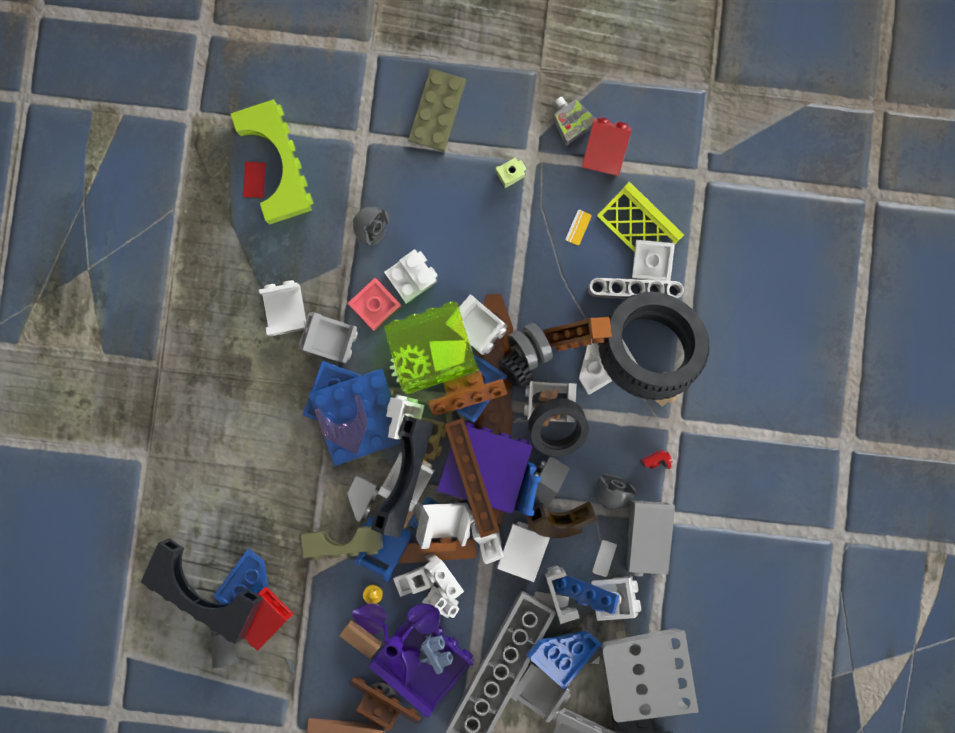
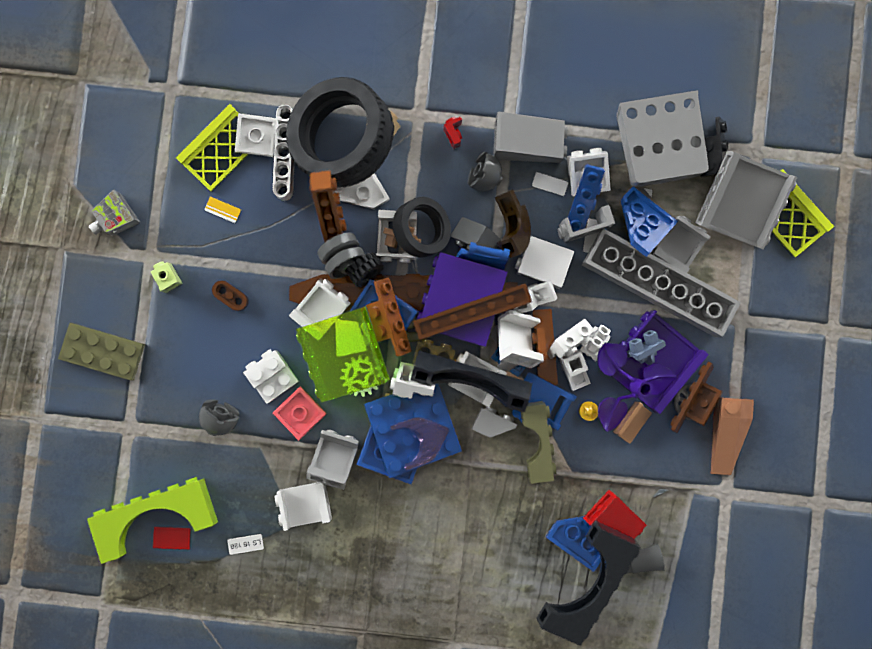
camera: 95 degrees left, 0 degrees up
(247, 251) = (245, 544): none -> white sticker
(491, 236) = (230, 296): none -> reddish brown plate
(606, 146) = (139, 179): red panel -> none

